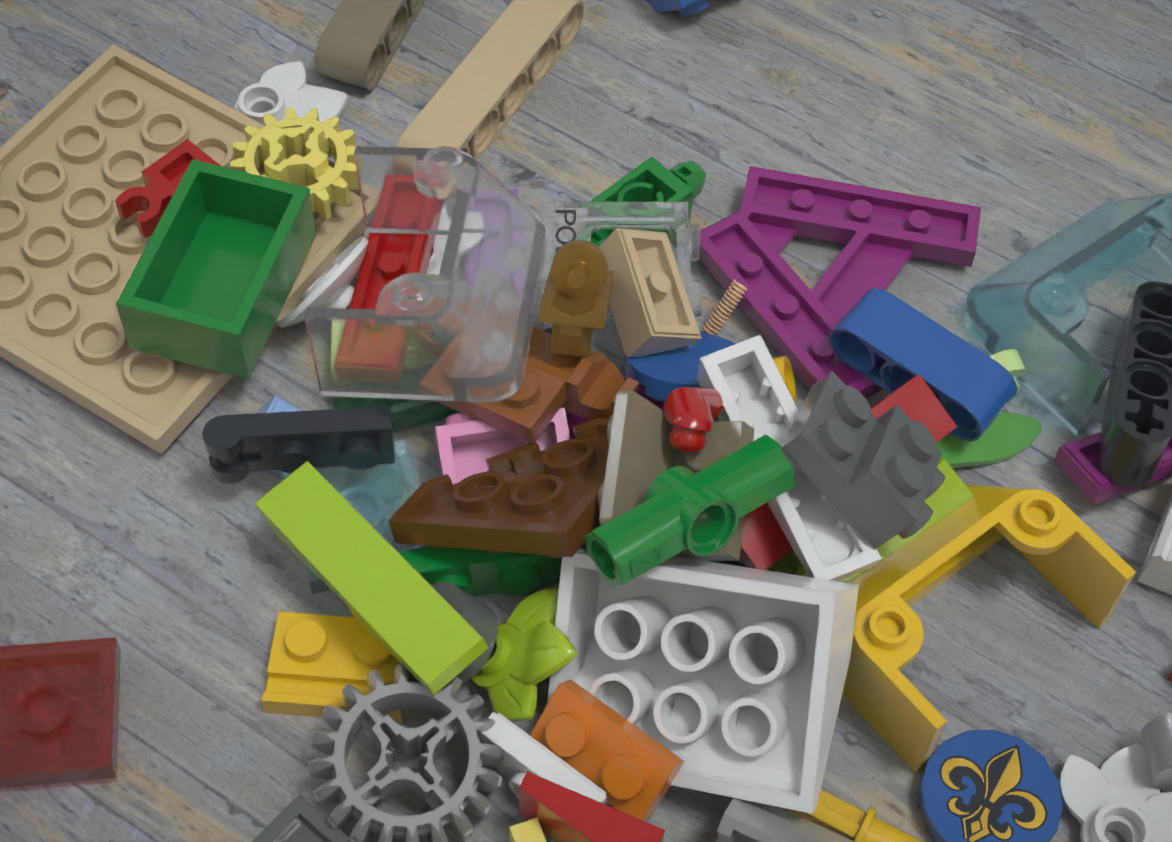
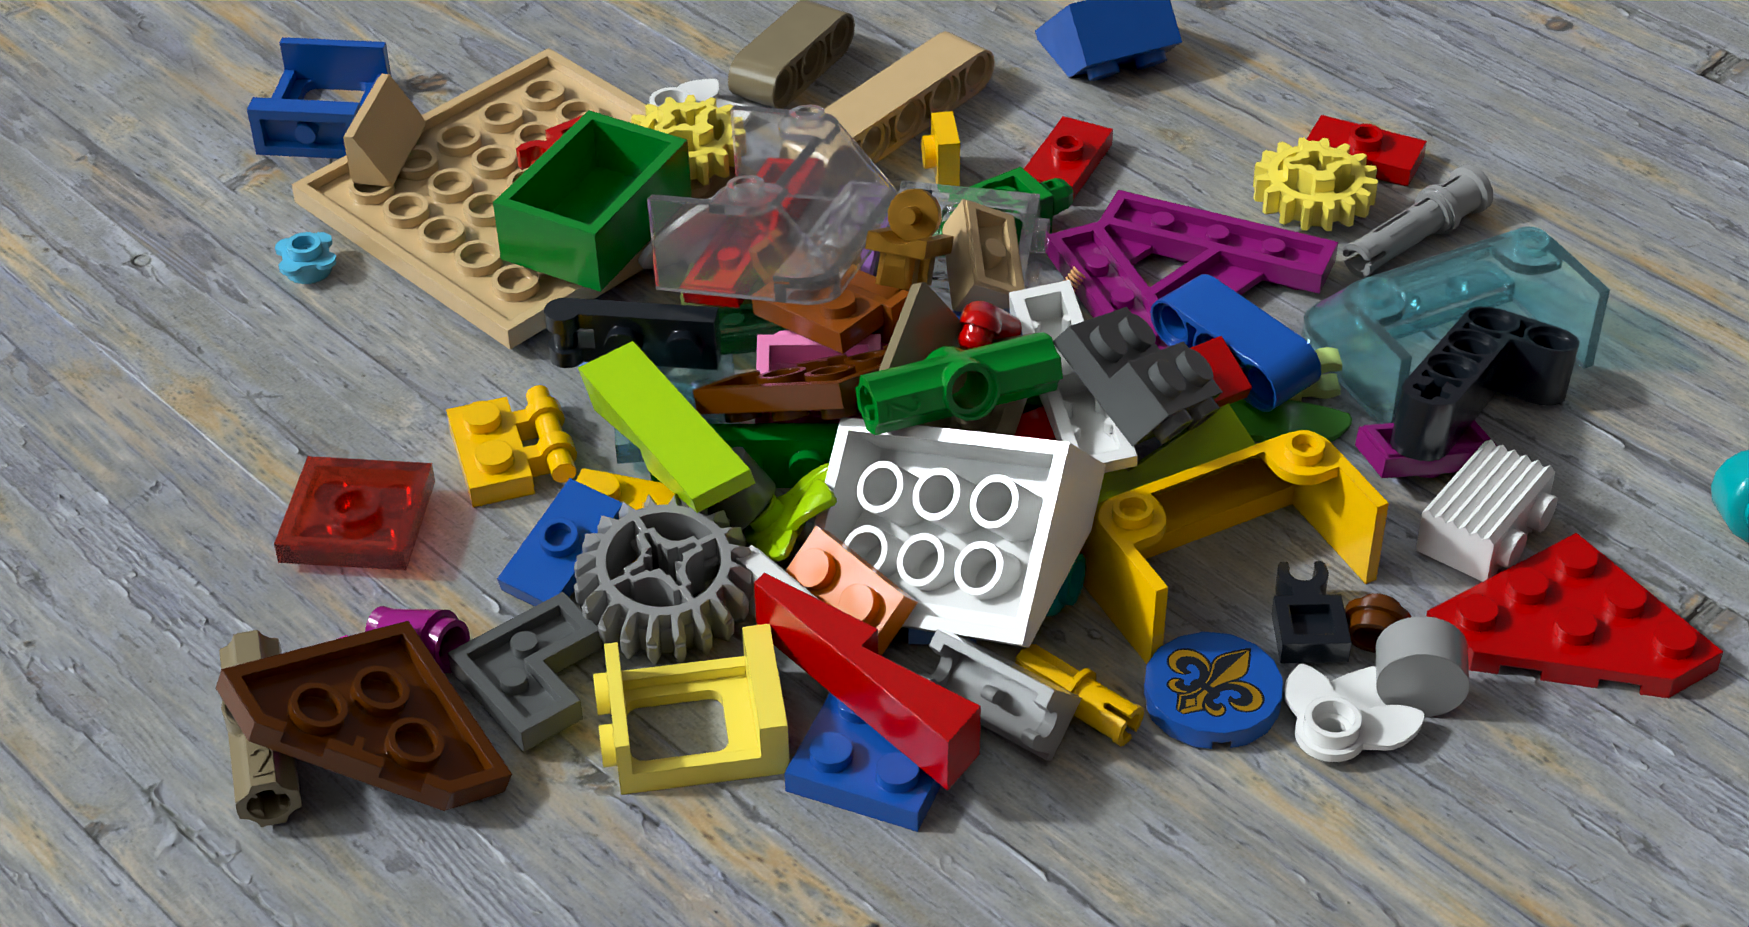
camera: 15 degrees right, 15 degrees down
(173, 598) = (491, 448): none -> yellow plate
(279, 729) = (548, 554): none -> blue plate
(560, 133) = (942, 149): none -> yellow plate
(683, 120) = (1071, 152): none -> red plate
(939, 132) = (1315, 184): none -> light yellow gear
(971, 77) = (1393, 154): none -> red plate
(1059, 152) = (1434, 211): none -> light grey pin
(1064, 701) = (1307, 620): none -> black plate
(1132, 692) = (1370, 616): none -> reddish brown plate

